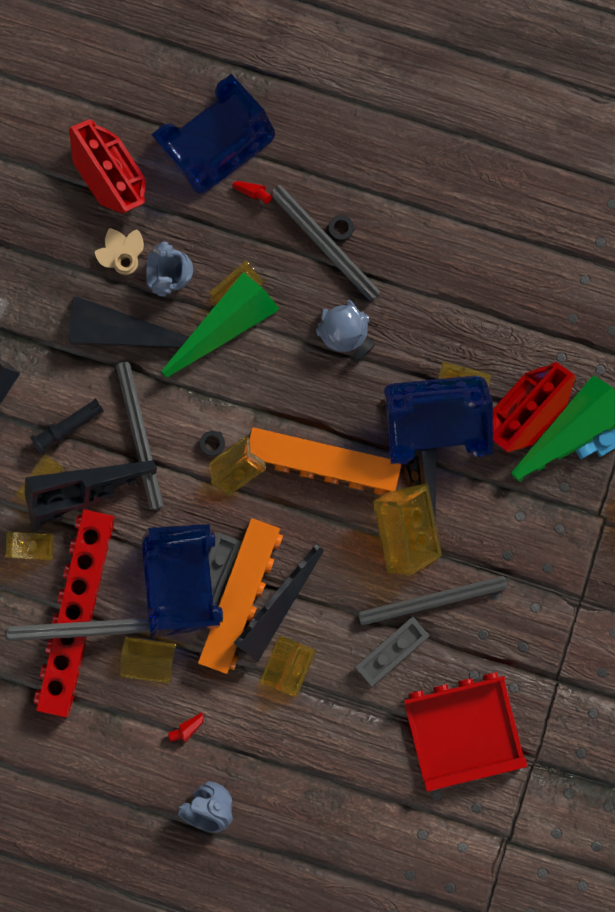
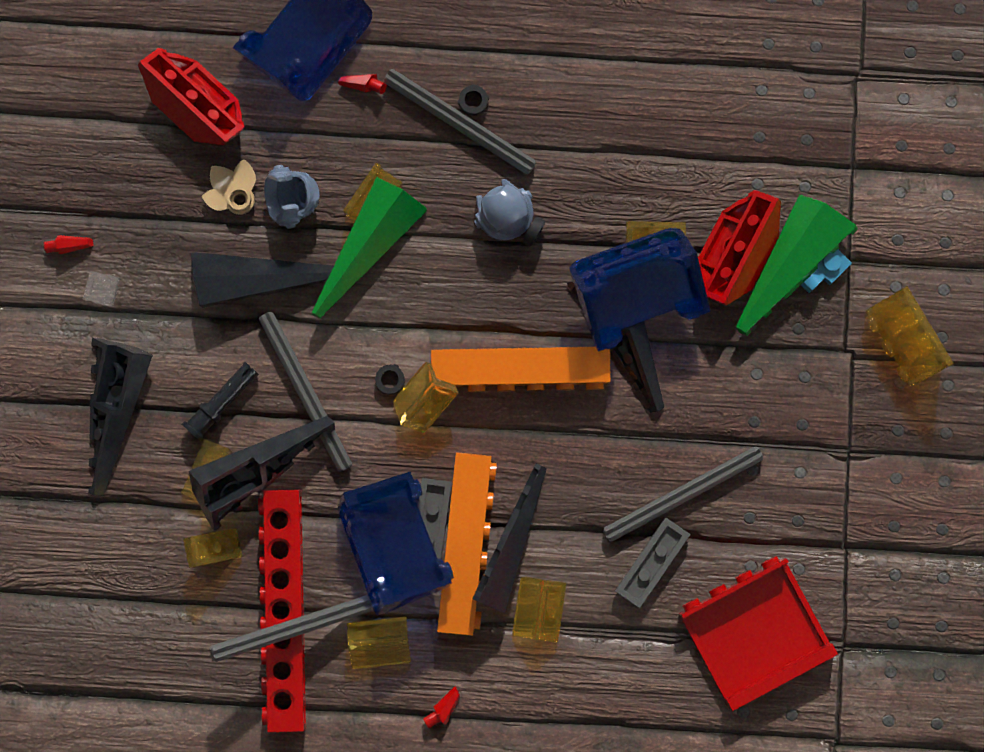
camera: 15 degrees left, 0 degrees up
(407, 529) = (635, 421): clear yellow slope -> none

